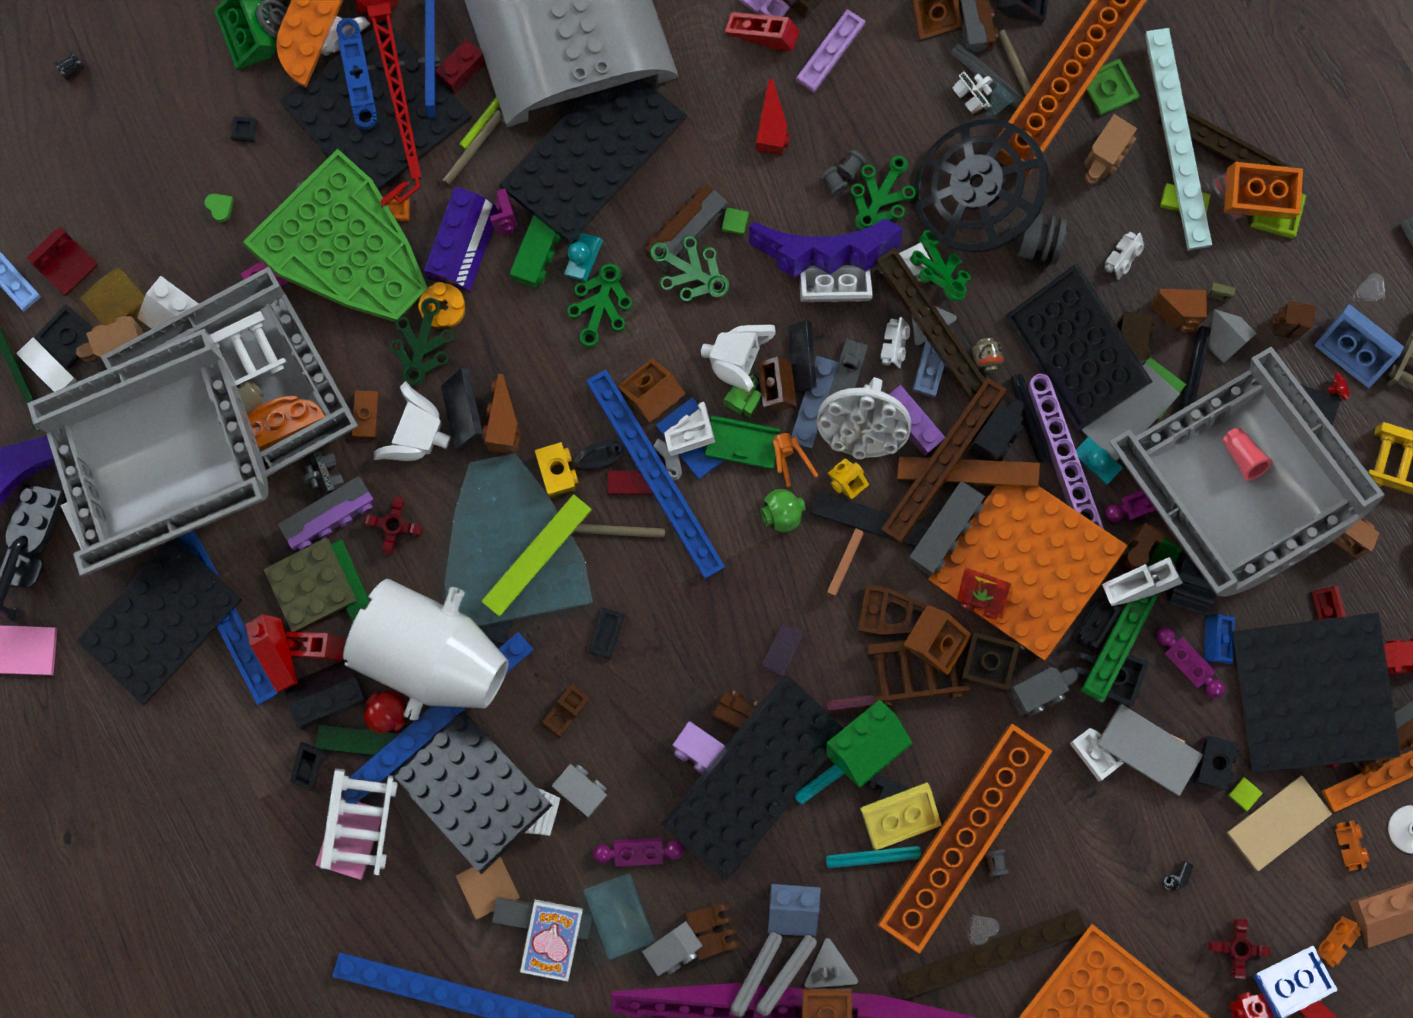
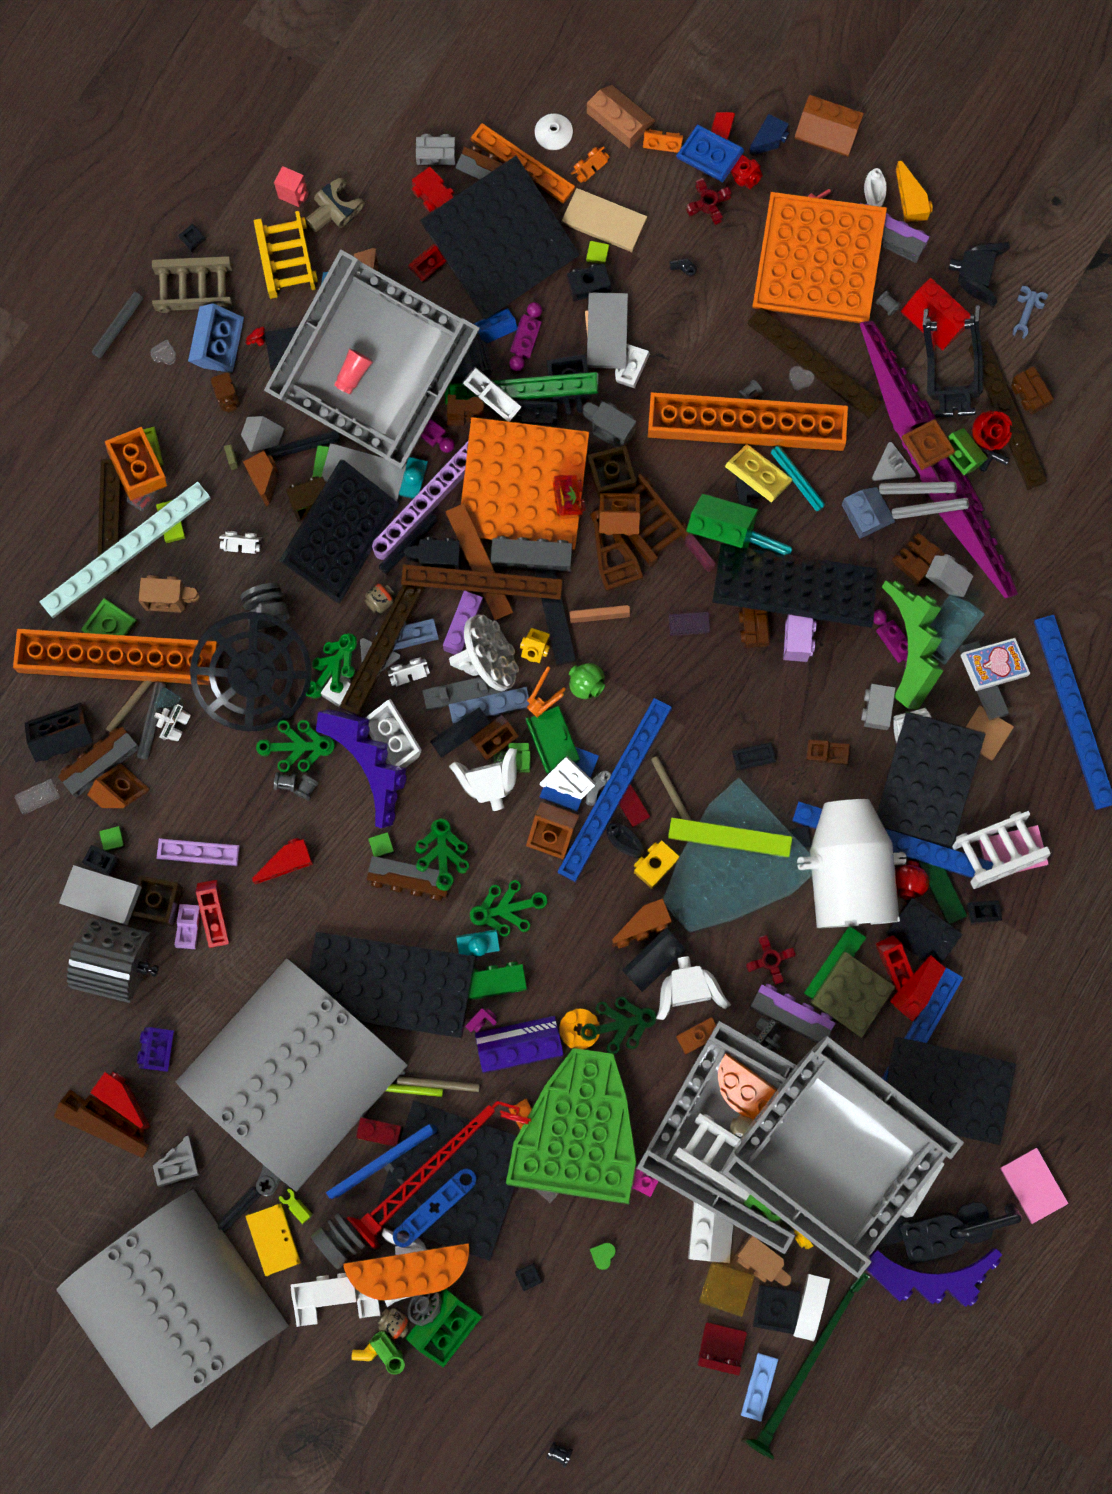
camera: 115 degrees left, 0 degrees up
(617, 873) = (923, 640): none -> bright green arch

